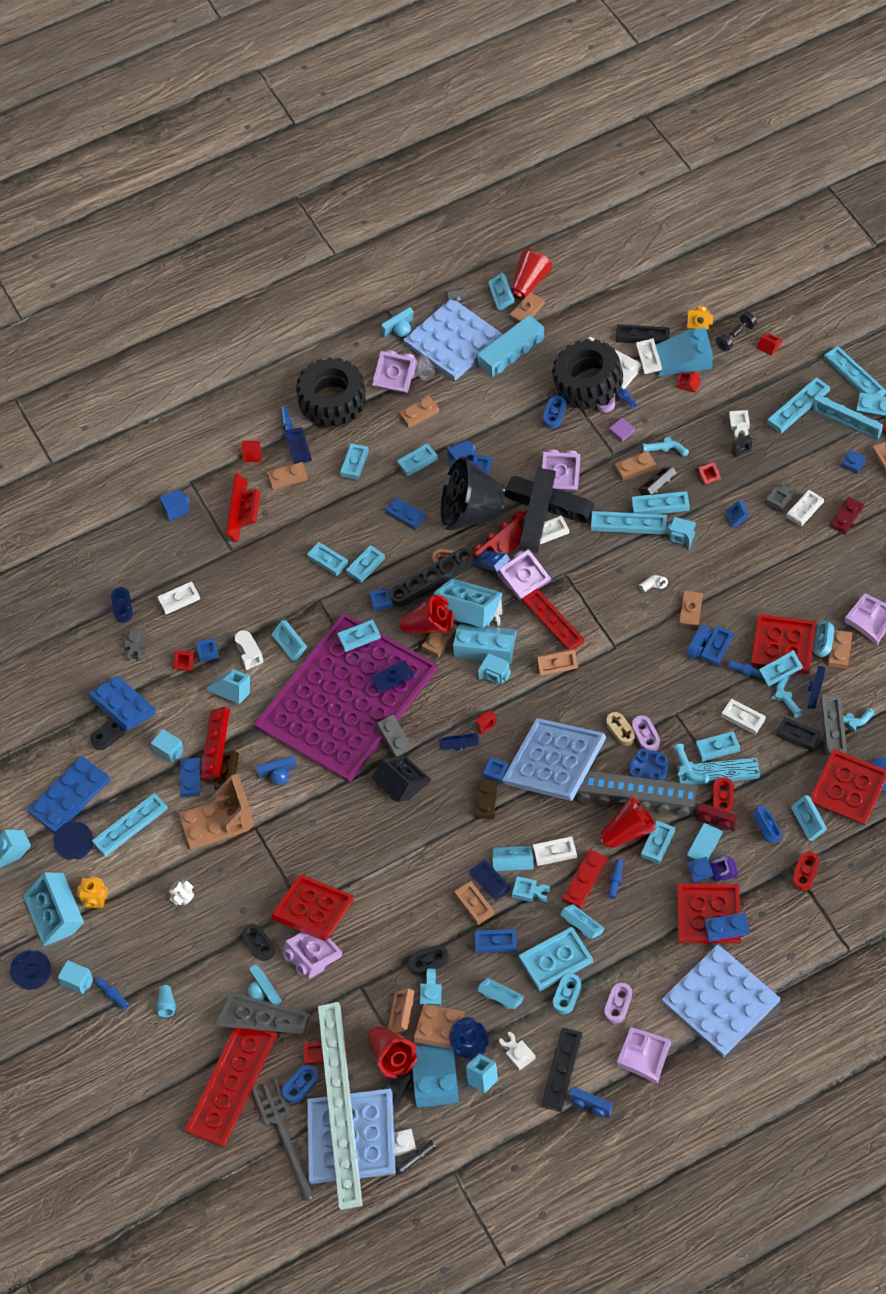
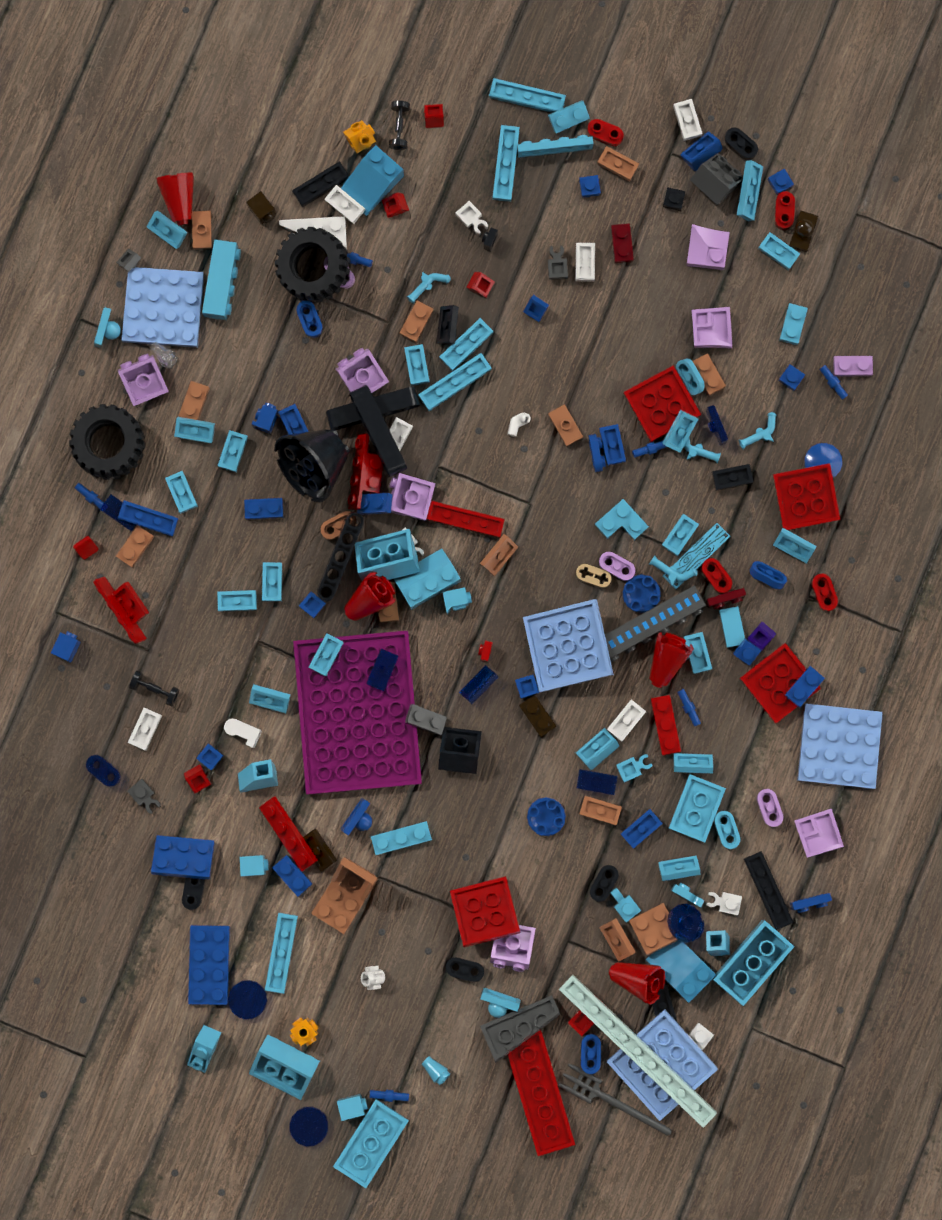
camera: 40 degrees left, 25 degrees up
(64, 1017) = (370, 1143): none -> medium azure plate
(203, 561) = (136, 680): none -> black wheel
(298, 810) = (401, 838): none -> medium azure plate
(314, 461) = (147, 518): none -> blue tile
(402, 427) = (194, 429): none -> medium azure plate
(420, 1153) = (719, 1036): black piece -> none
(426, 876) = (546, 816): none -> blue dish
(488, 1014) = (683, 891): none -> medium azure plate
(498, 1111) = (753, 962): none -> medium azure brick
(583, 319) = (261, 208): none -> dark brown brick
(609, 492) = (416, 364): none -> medium azure plate
(622, 430) = (378, 294): medium lavender tile -> none
(679, 701) = (621, 516): none -> medium azure plate
(681, 531) = (504, 359): medium azure window -> none
(743, 716) = (680, 493): white plate -> none
(833, 724) = (755, 451): dark grey plate -> none

